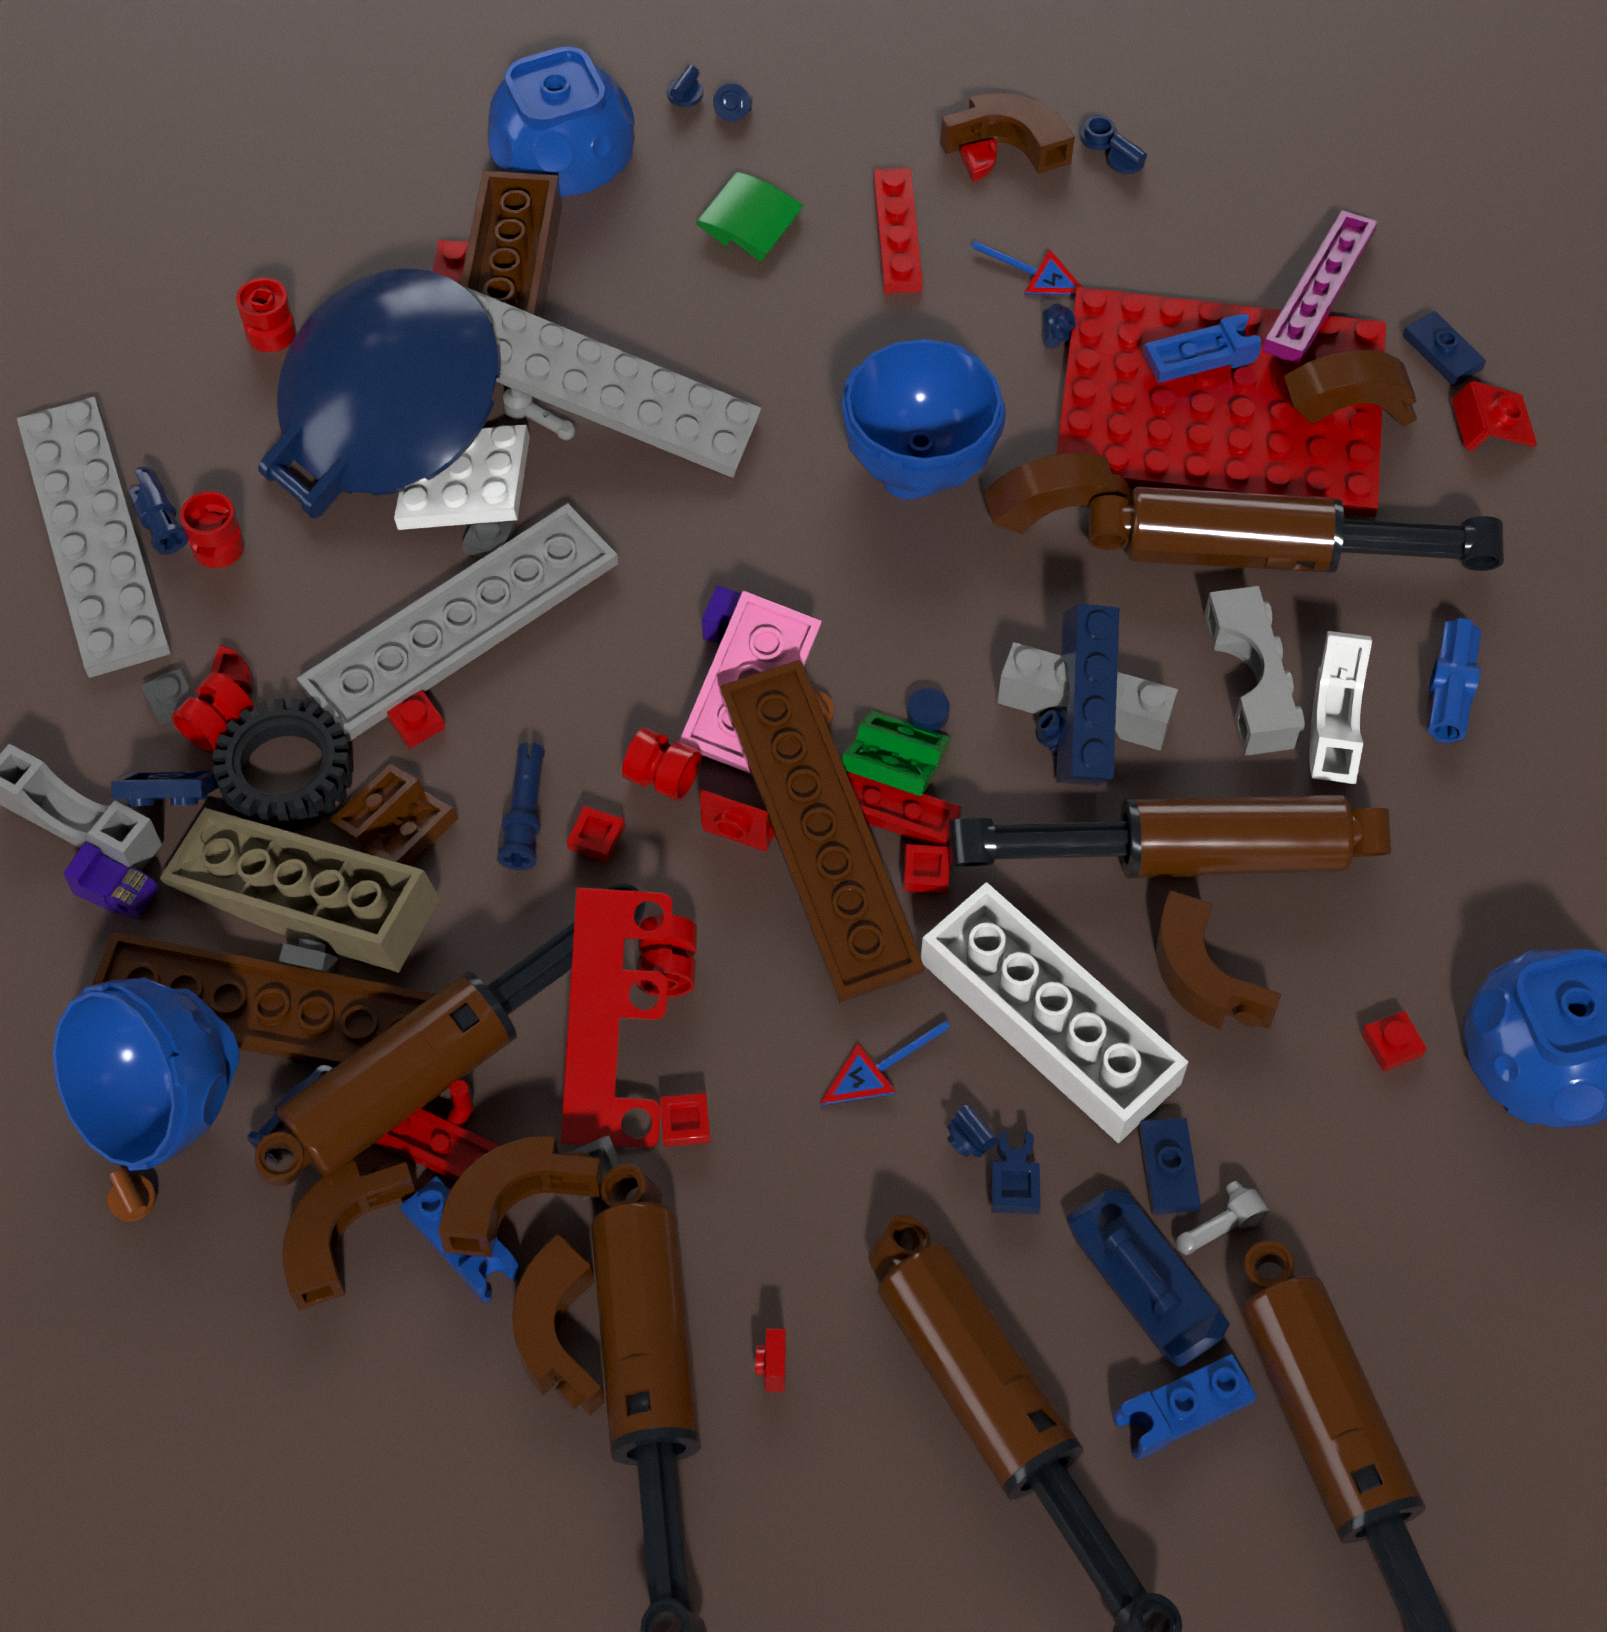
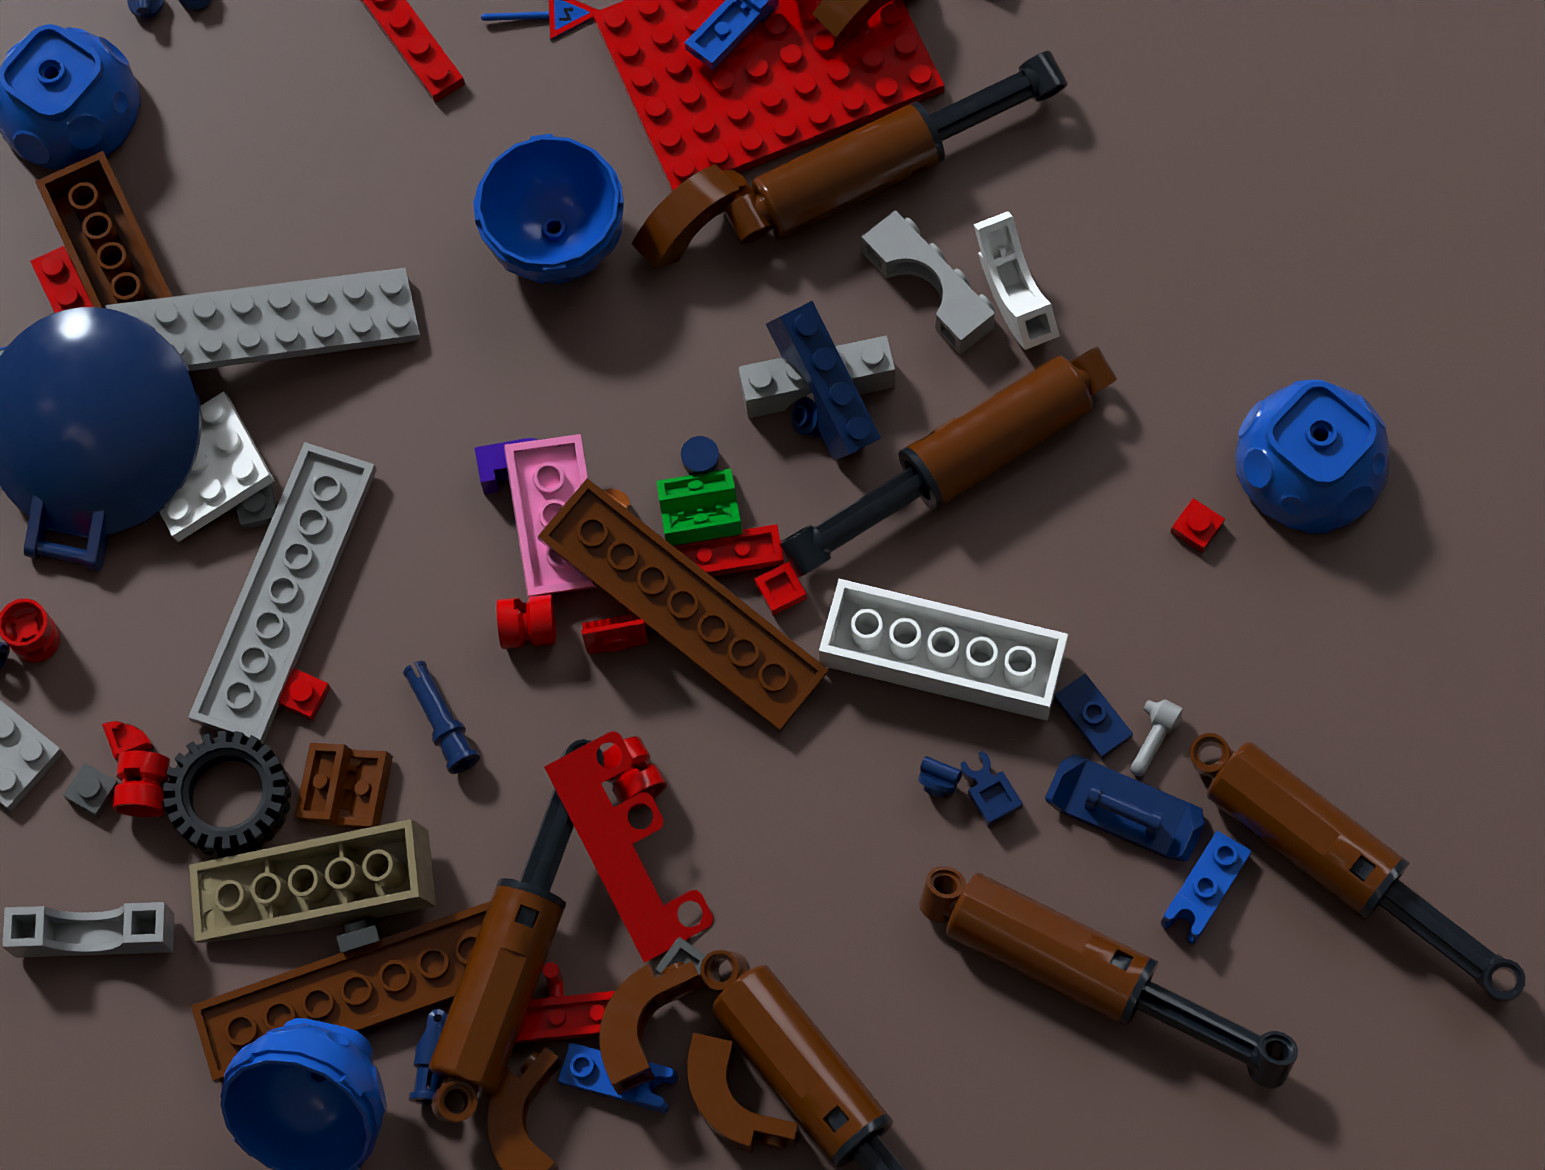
camera: 25 degrees left, 10 degrees up
(109, 883) = (159, 968): dark purple leg -> none
(149, 786) = (150, 865): dark blue plate -> none
(520, 407) = (205, 378): light grey piece -> none
(596, 834) = (511, 707): red plate -> none
(685, 1120) = (725, 890): red plate -> none
(750, 215) = (279, 92): green slope -> none
(771, 1360) = (901, 1029): red plate -> none
(864, 1079) = (832, 780): piece -> none
(1057, 325) = (597, 56): dark blue plate -> none
(1194, 977) = (1025, 559): reddish brown arch -> none
(1454, 680) = (1083, 204): blue piece -> none

